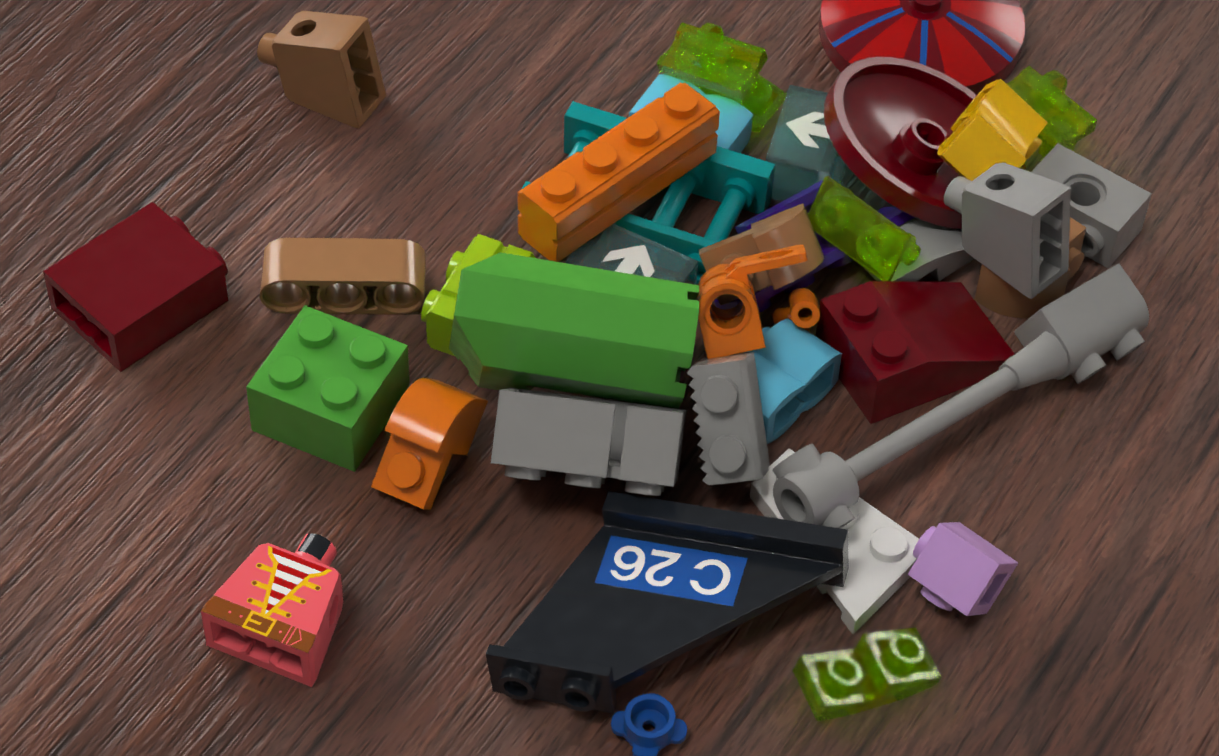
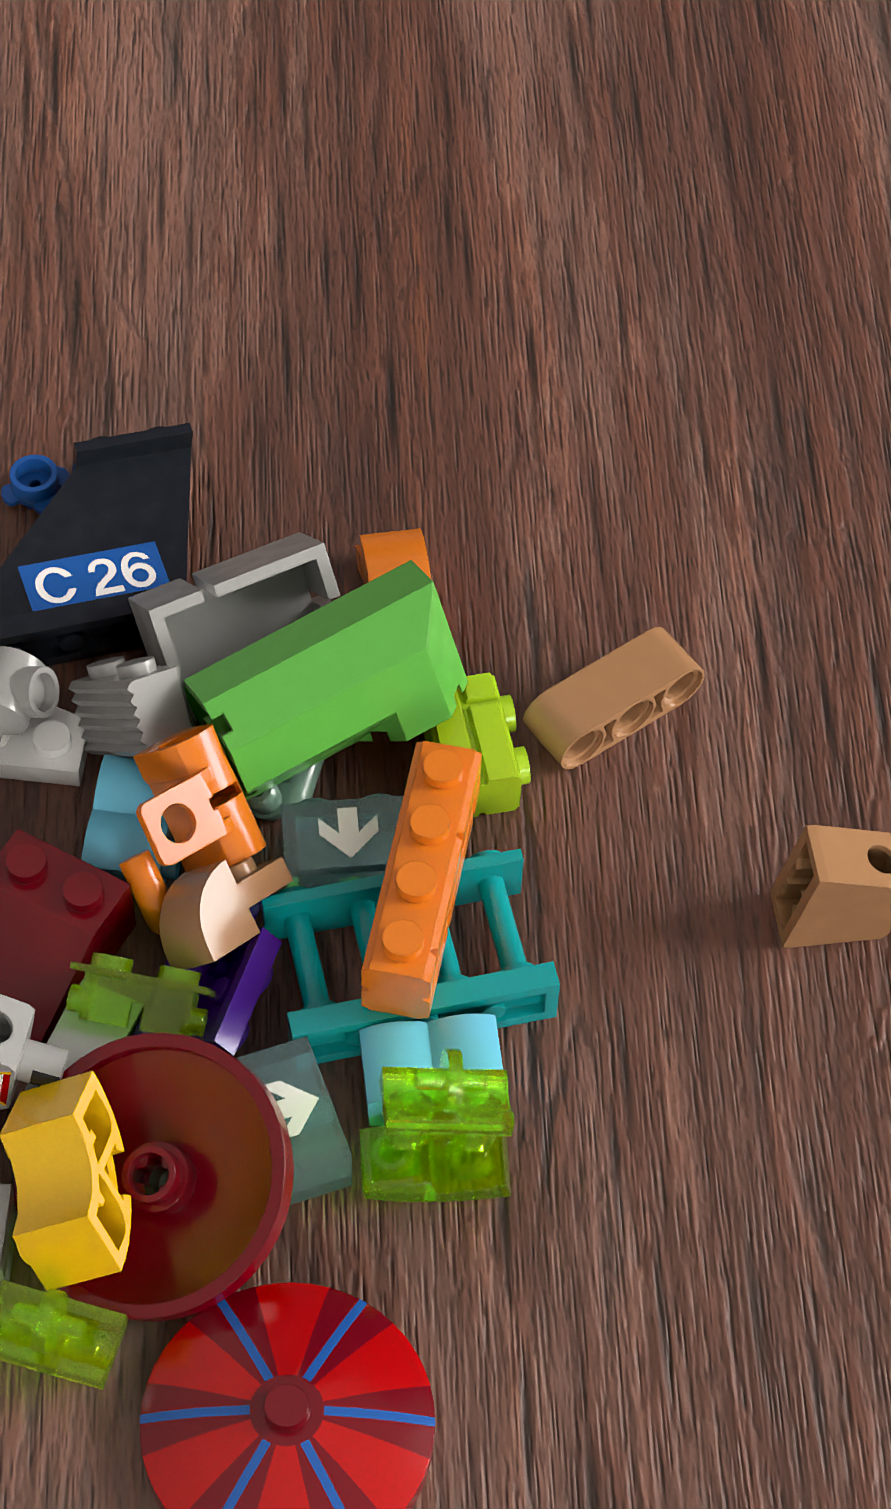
camera: 145 degrees right, 5 degrees up
(137, 285) = (777, 580): dark red brick -> none
(279, 609) = (387, 399): coral torso -> none
(328, 387) = (520, 580): bright green brick -> none

